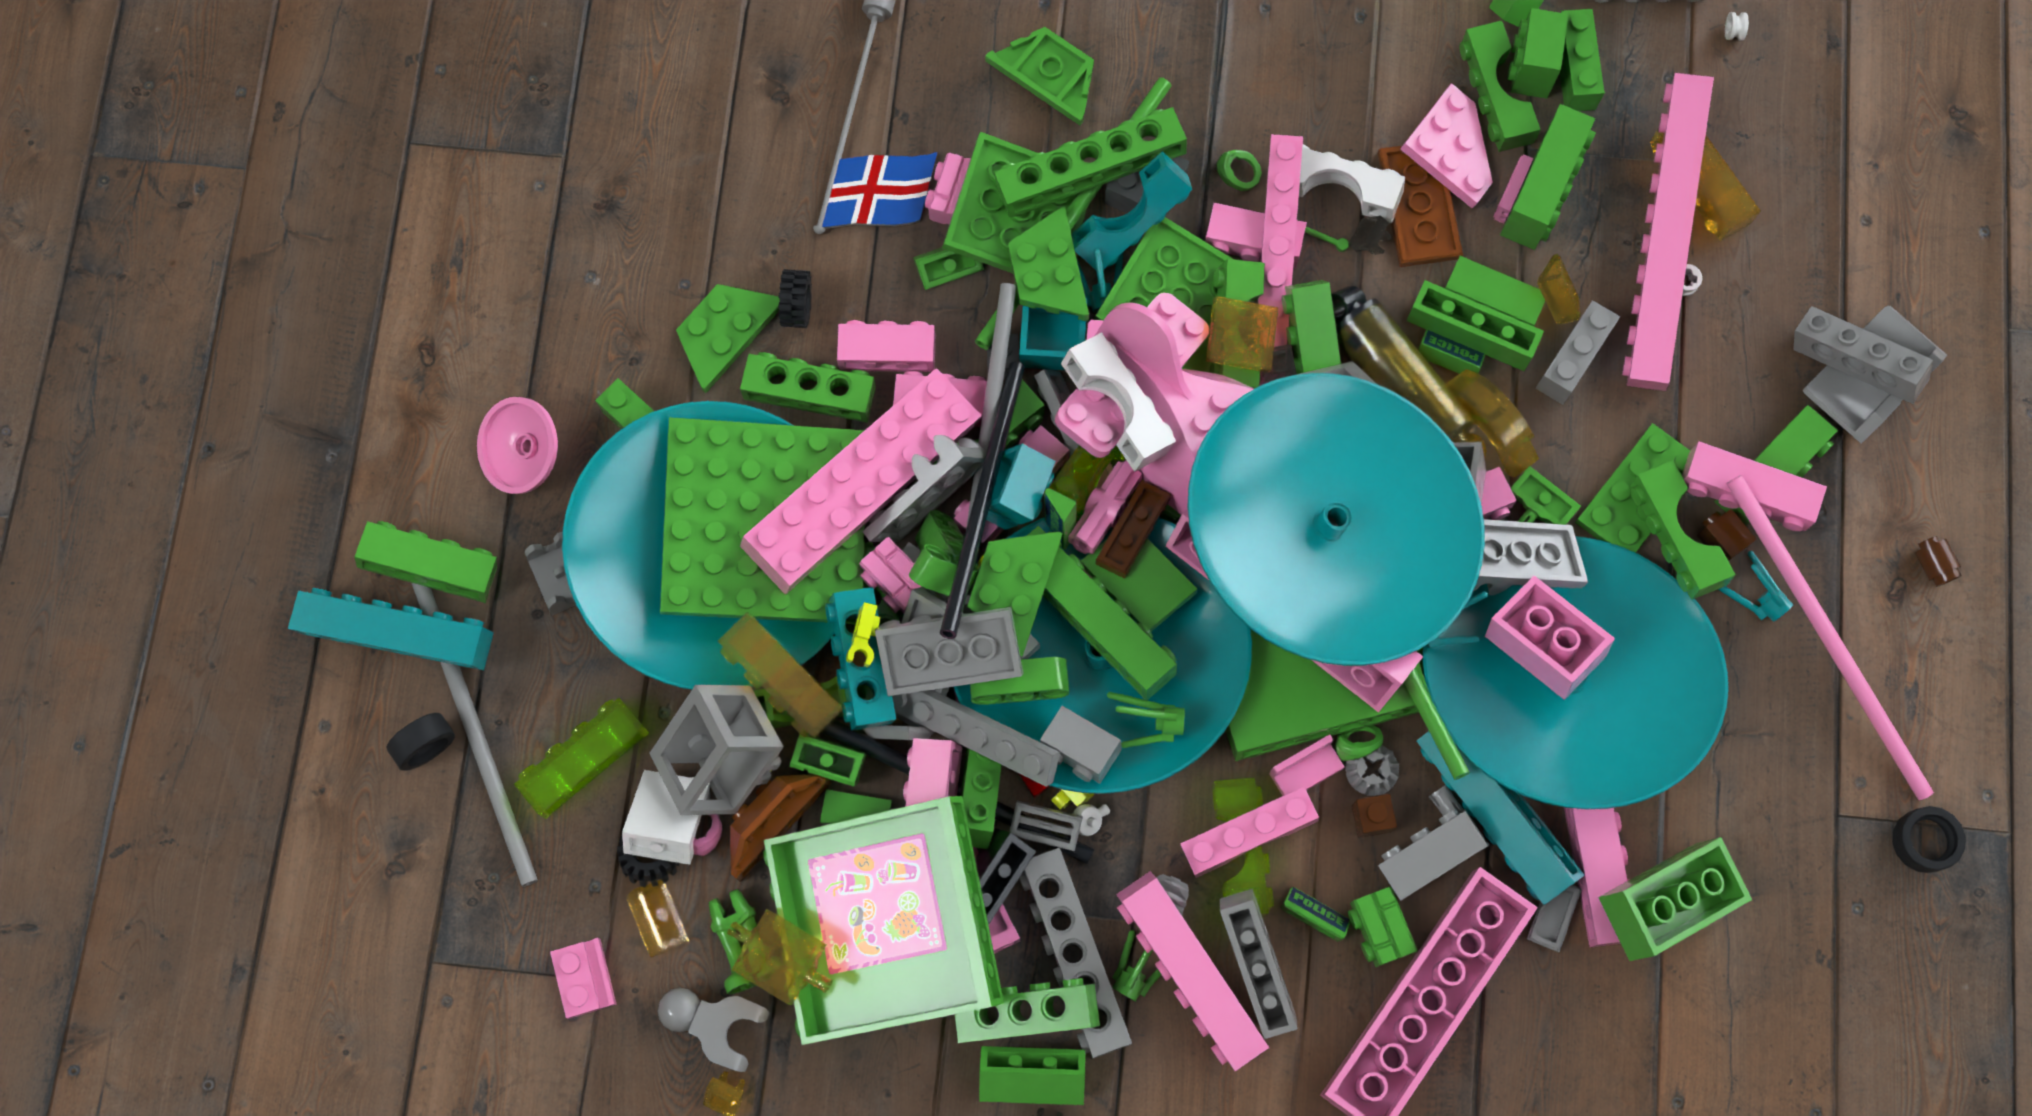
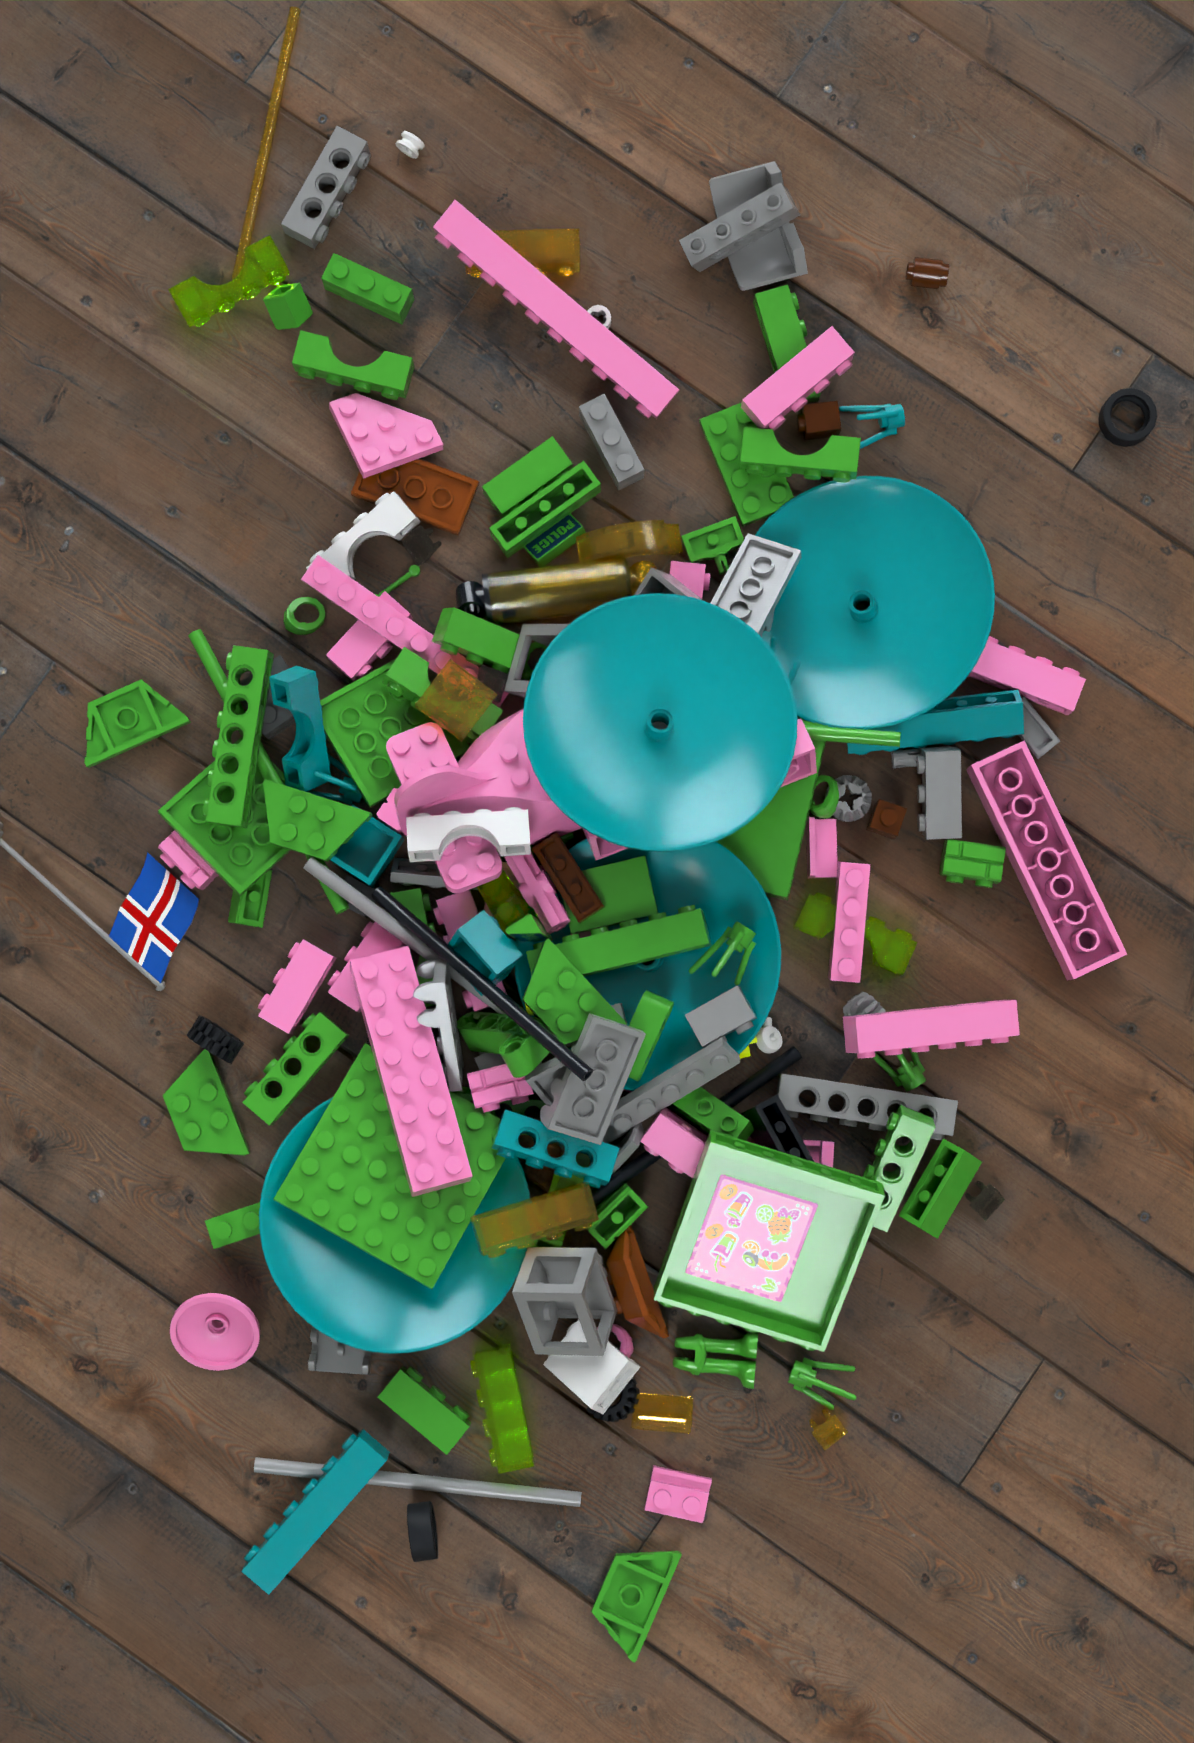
camera: 60 degrees left, 10 degrees up
(426, 561) = (273, 1455): bright green brick -> none
(458, 987) = (633, 1596): none -> bright green wing
(543, 682) = (425, 1409): none -> bright green brick
(682, 1011) = (767, 1413): light grey piece -> none
(766, 1041) = (803, 1375): none -> bright green plant
(779, 957) = (751, 1335): clear yellow plate -> none
(846, 806) = (662, 1214): bright green tile -> none
(864, 628) = (537, 1133): neon yellow plate -> none
(1050, 813) = (751, 1066): light grey tile -> none
(1258, 963) = (952, 973): light grey brick -> none
(1315, 914) = (934, 905): bright green slope -> none
(1513, 188) = (446, 408): bright pink tile -> none
(1537, 53) = (345, 318): bright green brick -> none
(1549, 178) = (456, 376): bright green brick -> none
(1549, 637) = (831, 608): bright pink brick -> none
(1559, 291) = (555, 426): clear yellow slope -> none
(1675, 899) = (1073, 635): bright green brick -> none
(1830, 638) = (941, 395): bright pink piece -> none

